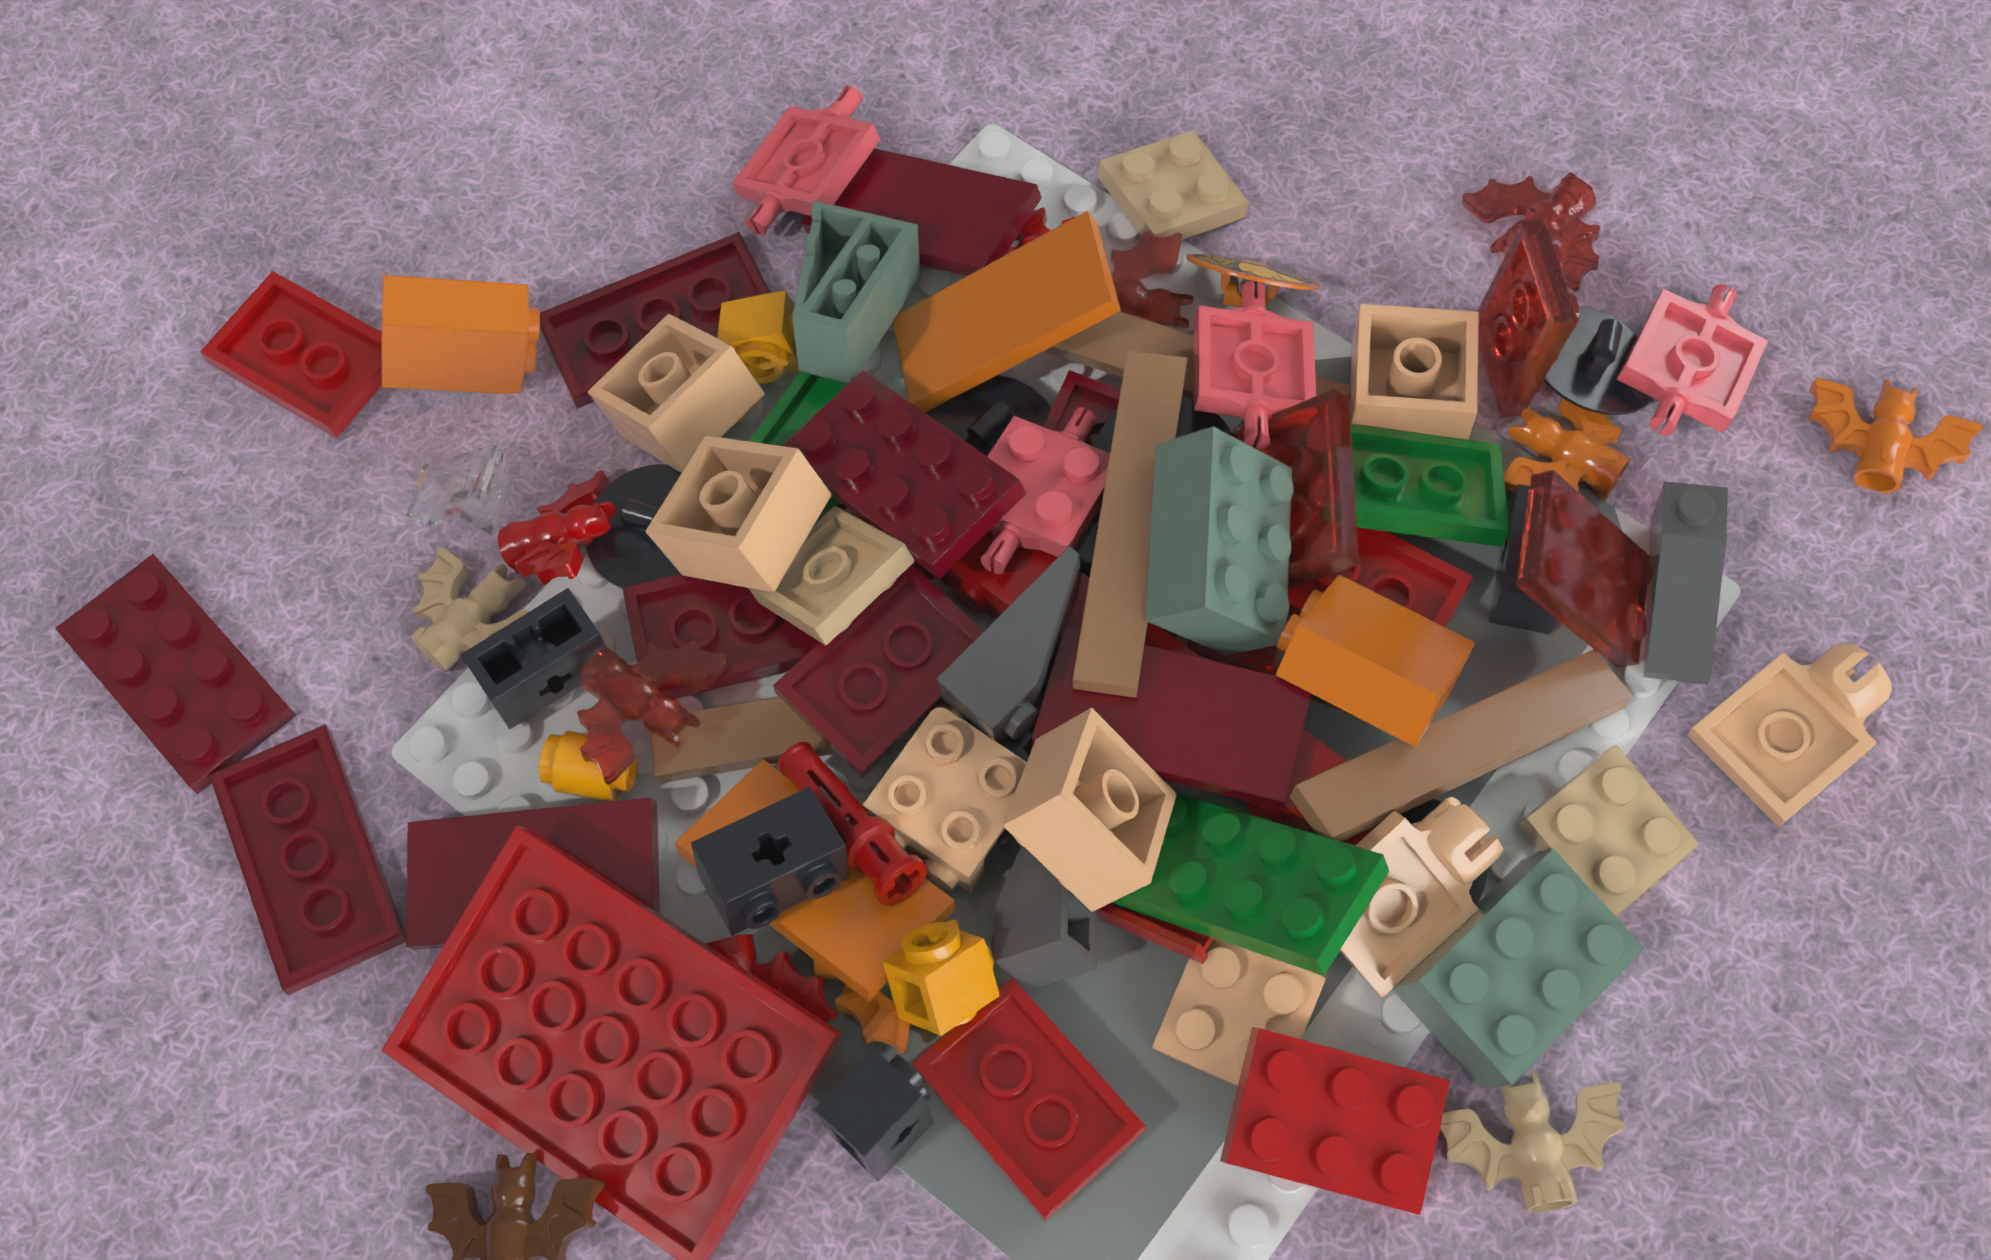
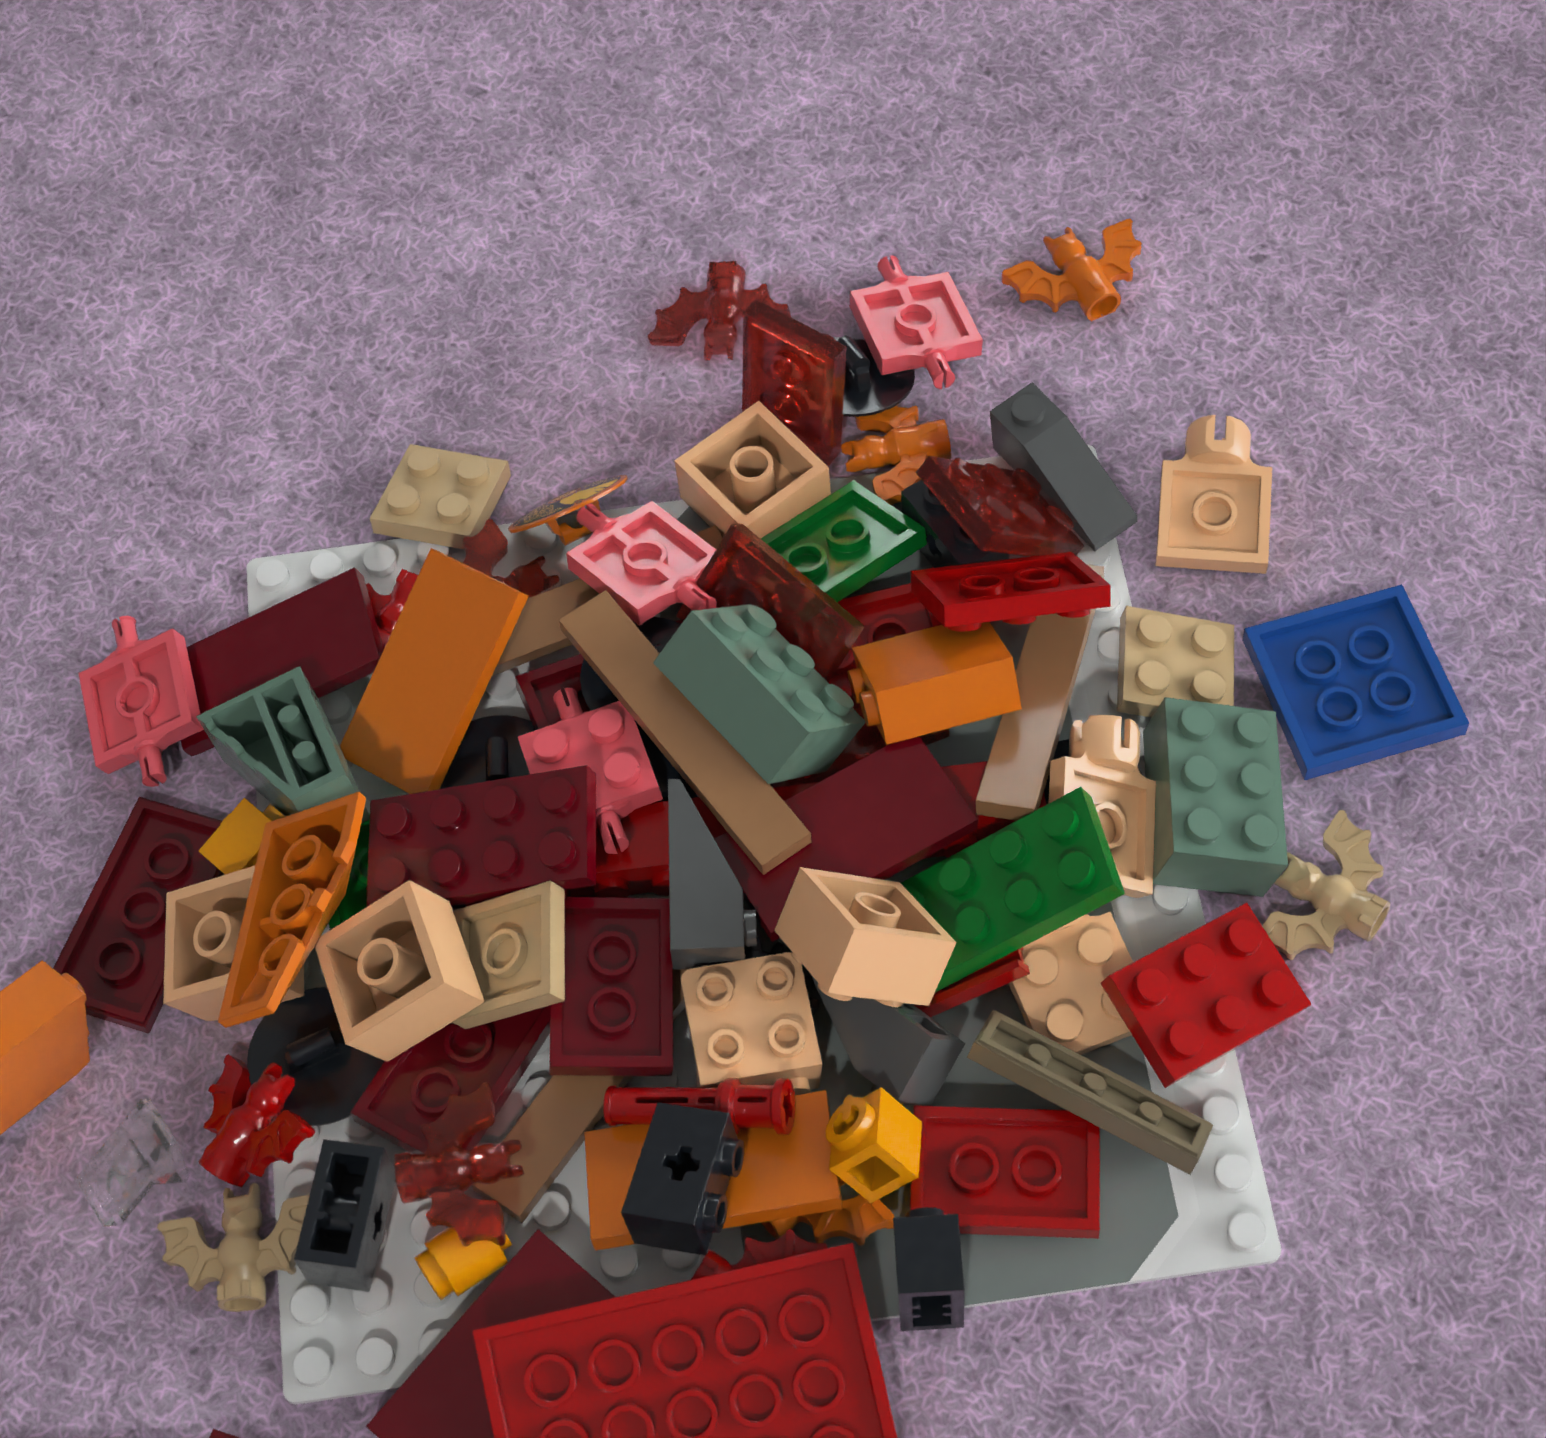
camera: 45 degrees left, 5 degrees down
(730, 389) = (290, 901): none -> orange wedge
(1153, 1105) = (1091, 1091): none -> dark tan tile
(1515, 643) = (1010, 590): none -> red plate
(1756, 990) = (1354, 682): none -> blue plate

